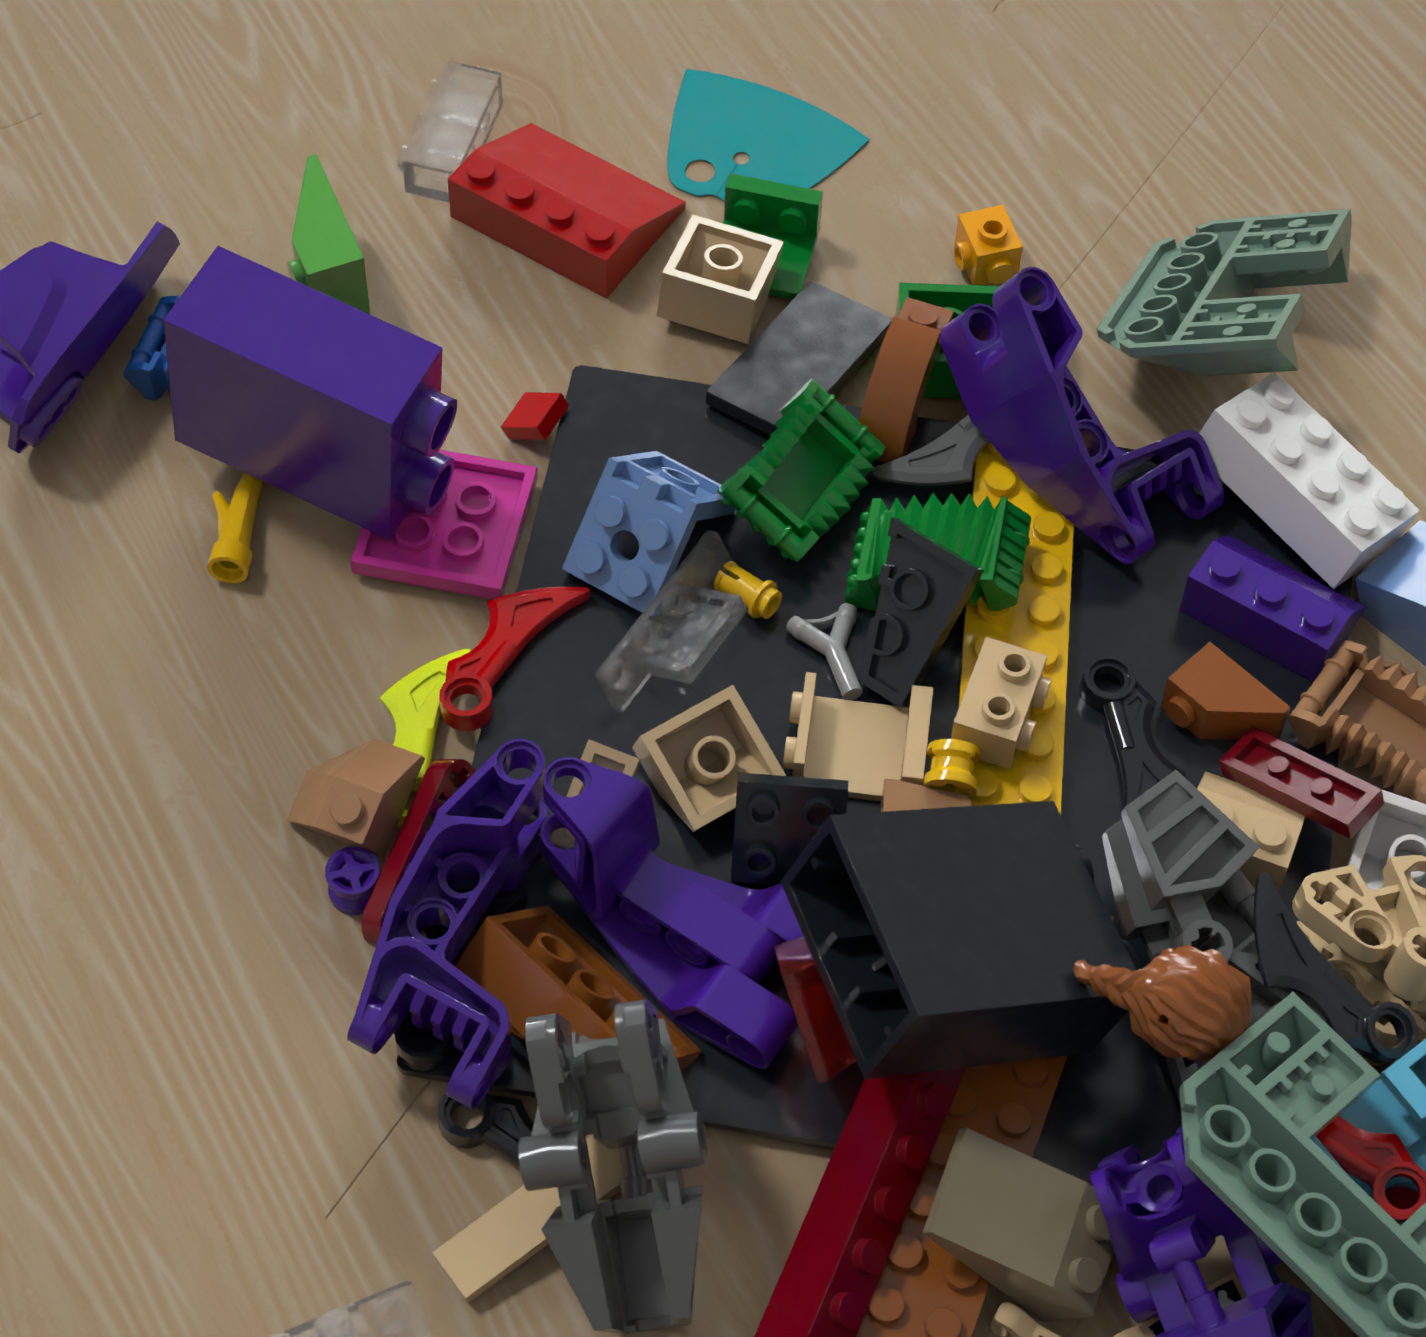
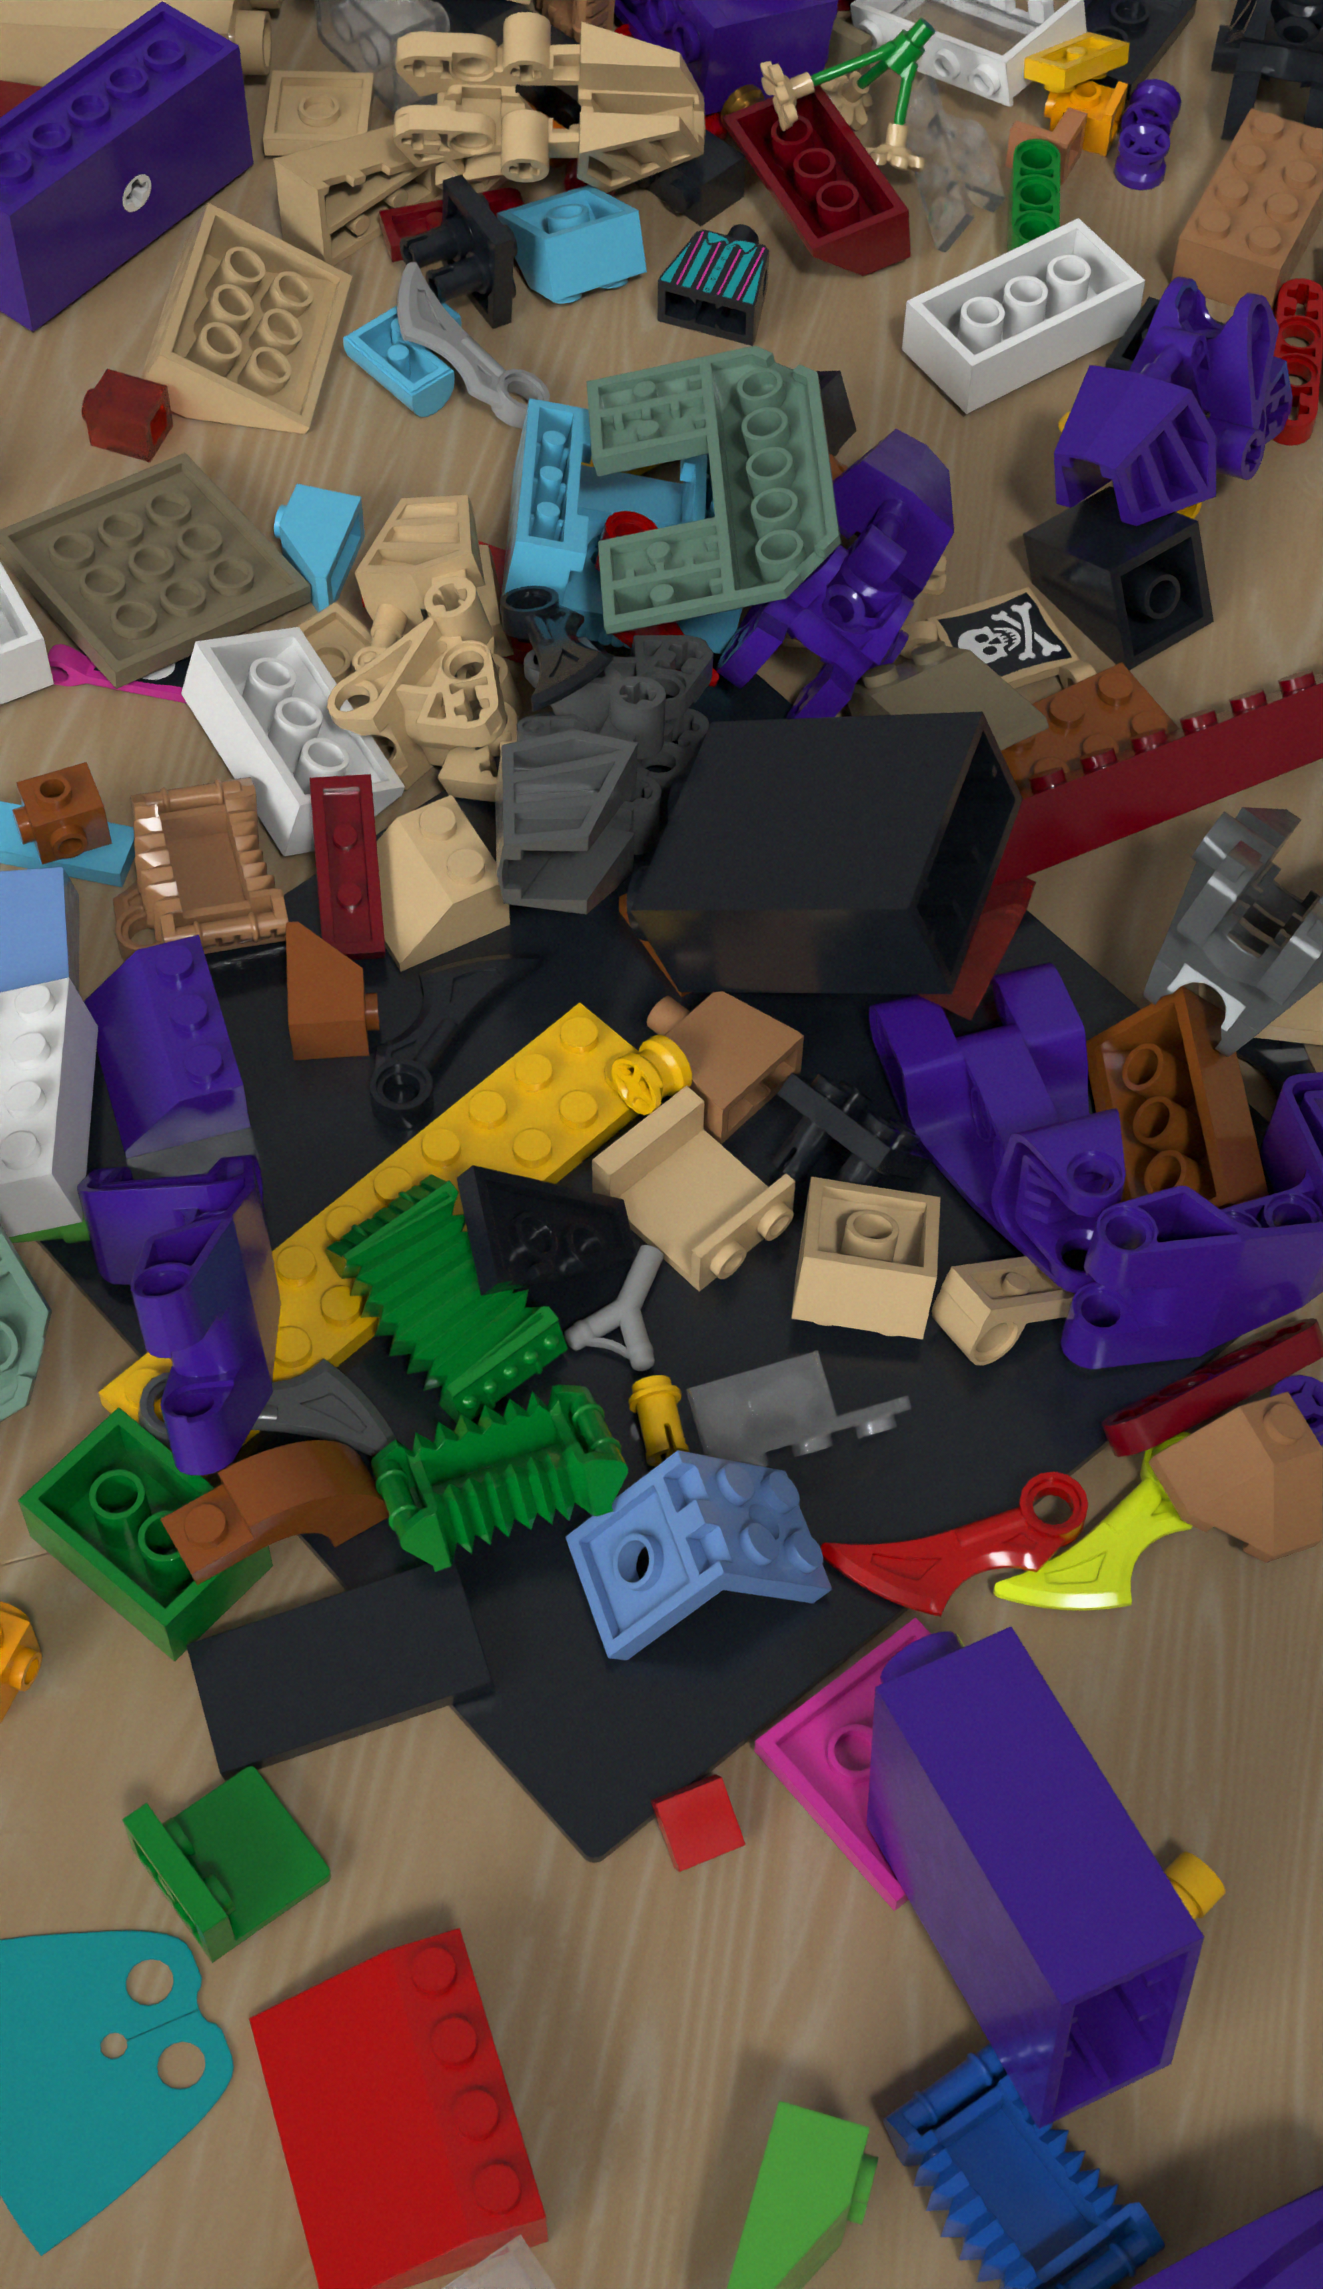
camera: 140 degrees left, 0 degrees up
(719, 279) = (332, 1829): tan slope -> none
(1000, 701) = (548, 1097): tan brick -> none
(1180, 1002) = (710, 645): dark orange hair -> none

